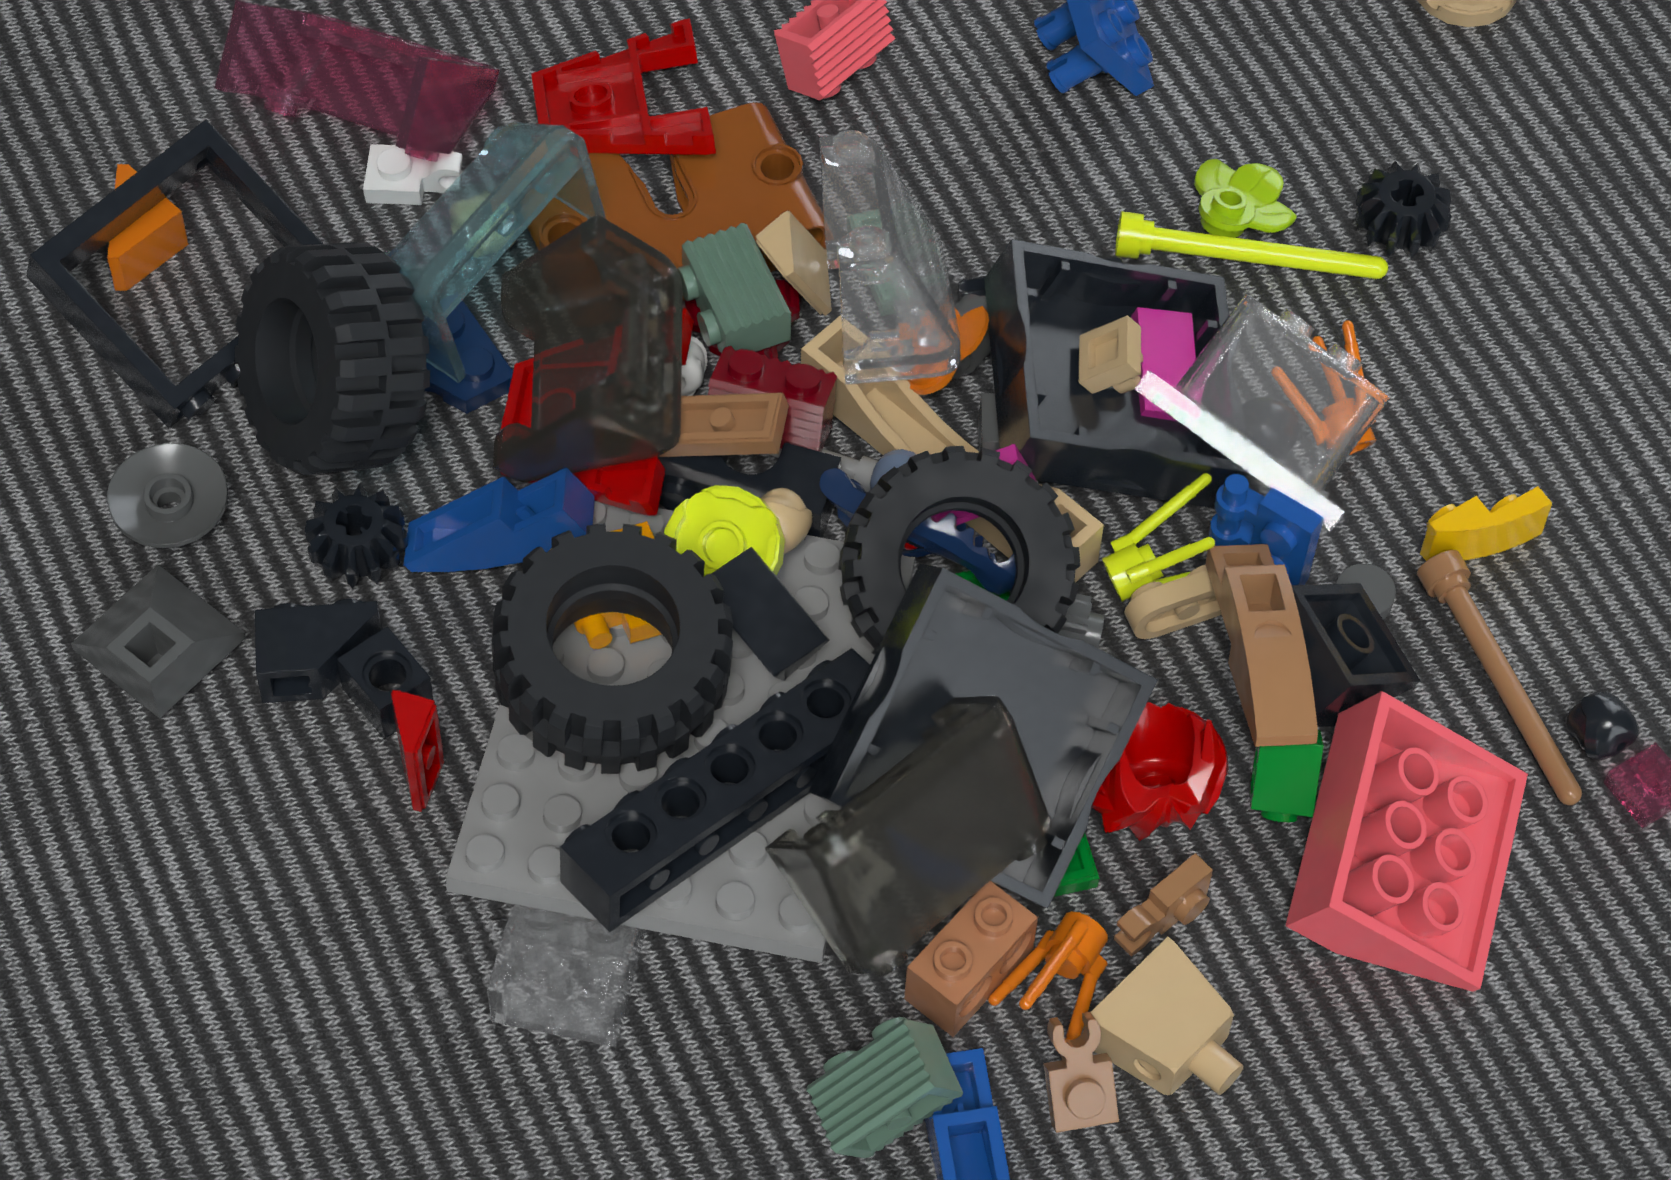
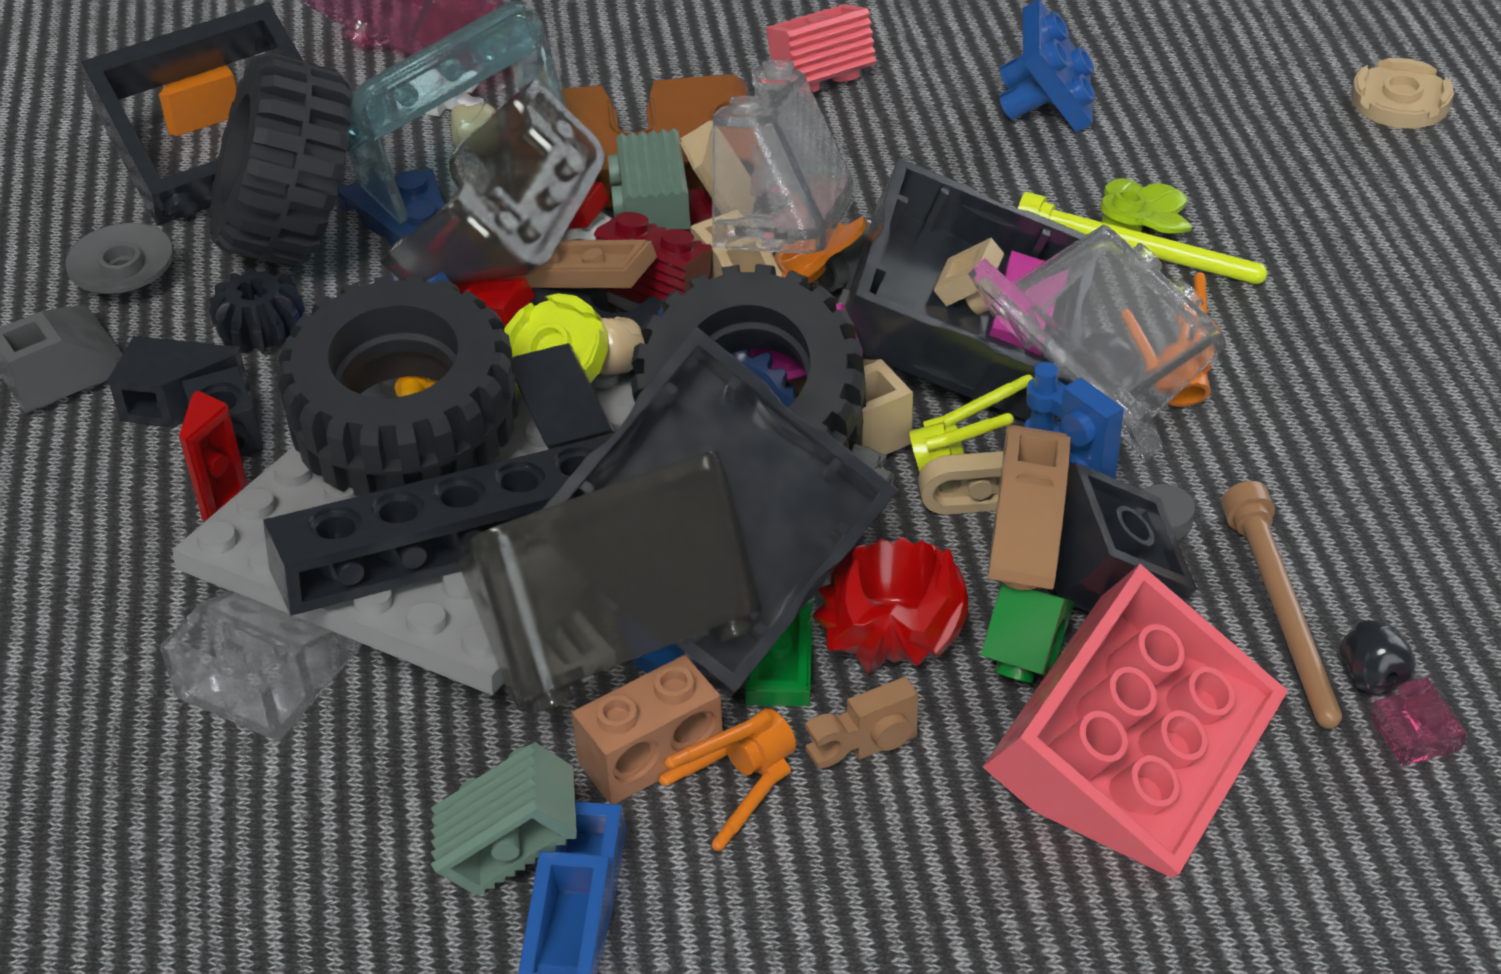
camera: 20 degrees right, 15 degrees down
(608, 104) = (629, 64): red wing -> none
(1082, 1083) = (712, 866): medium nougat plate -> none
(1168, 1024) = (822, 830): tan torso -> none
(1403, 209) = (1292, 230): black gear -> none
(1483, 532) = (1308, 479): yellow slope -> none

